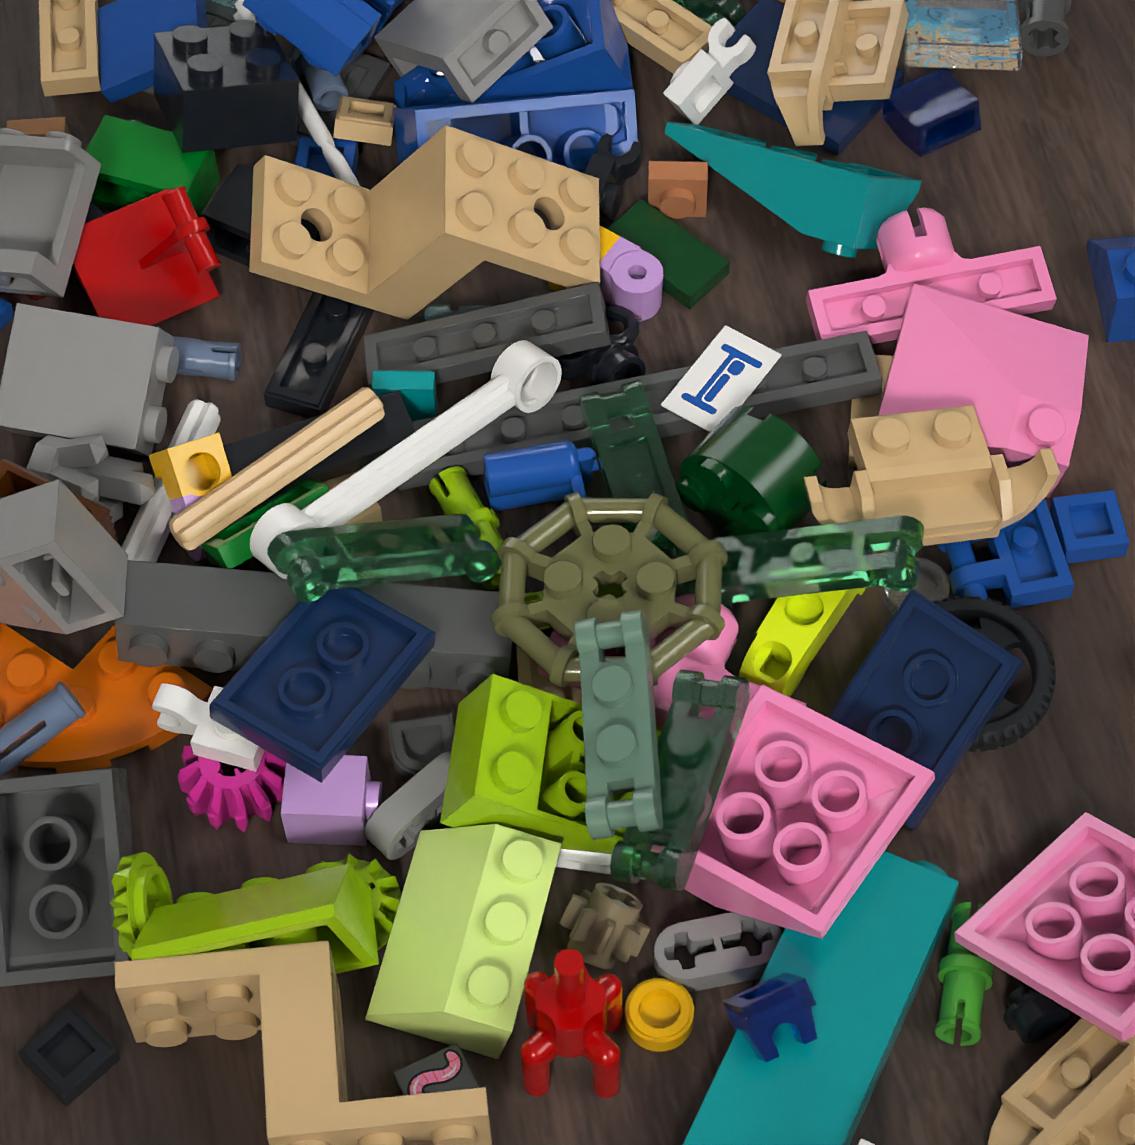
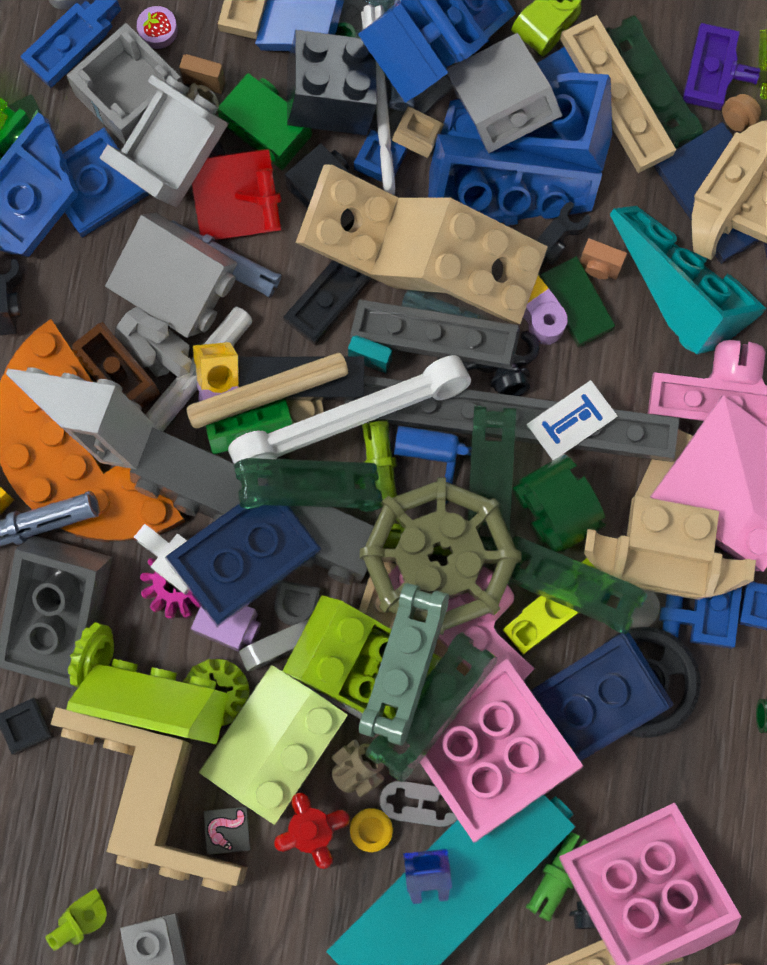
camera: 20 degrees right, 20 degrees up
(705, 79) = (650, 182): white plate -> none

